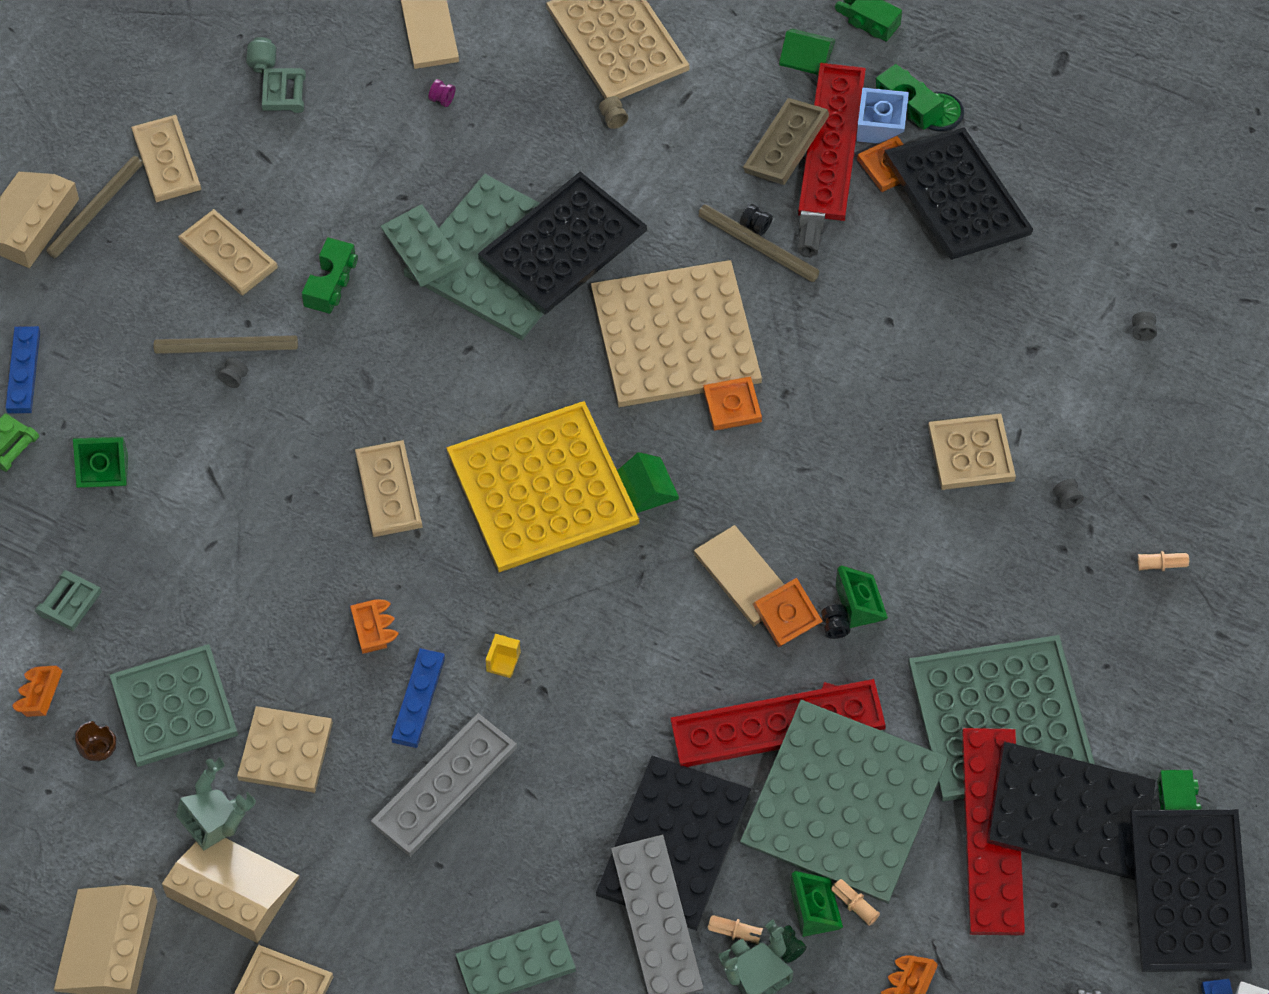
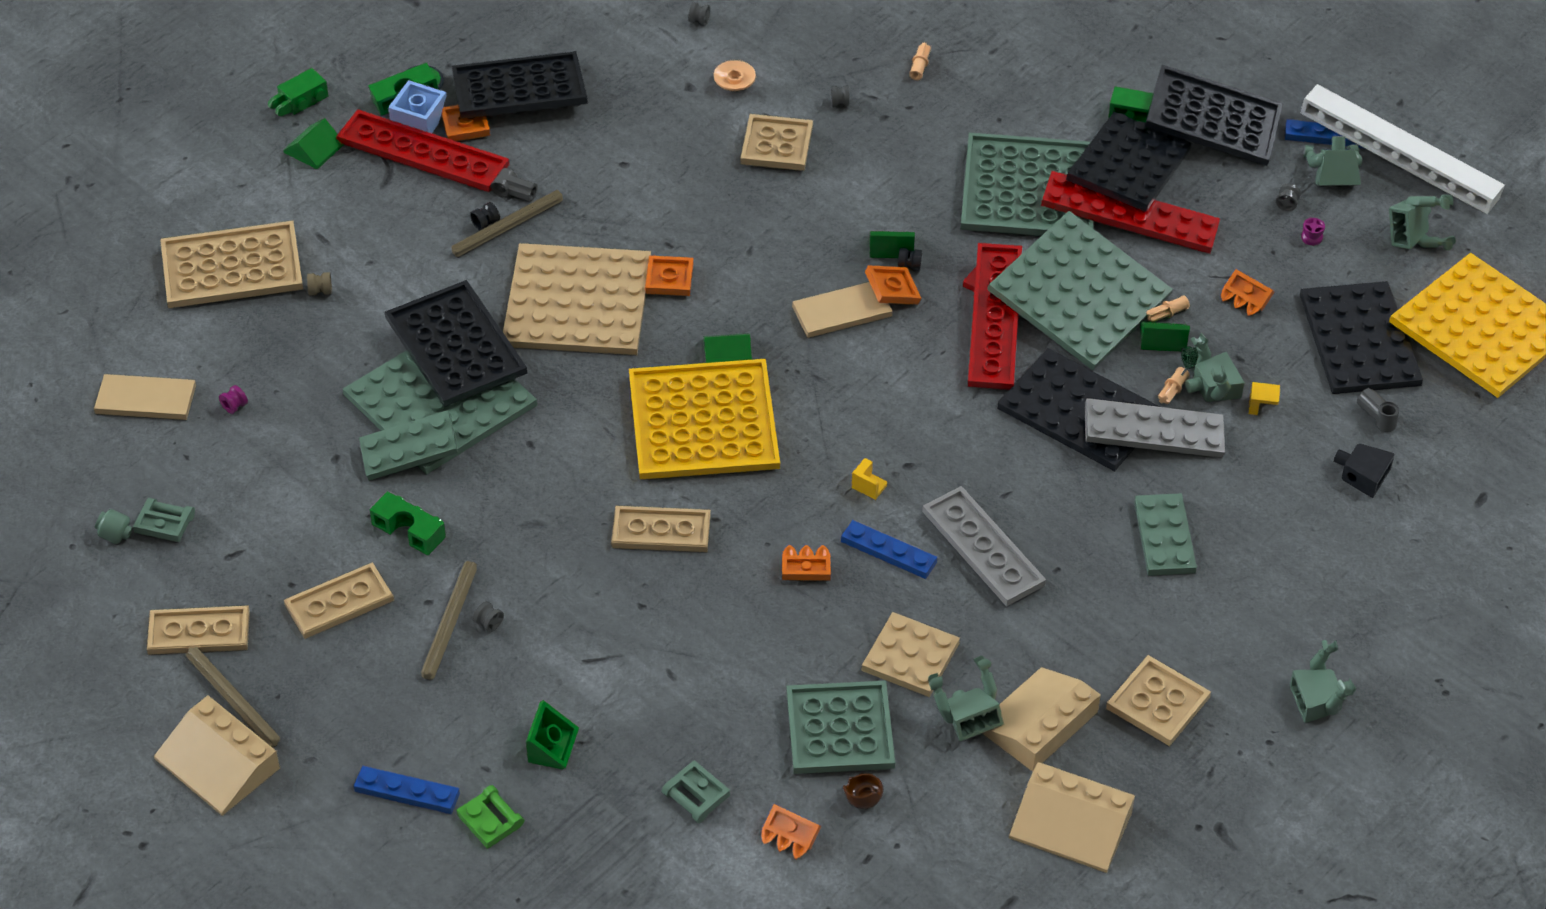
camera: 75 degrees left, 10 degrees down
(786, 141) = (413, 175): dark tan plate -> none
(1058, 376) = (734, 75): none -> light nougat dish

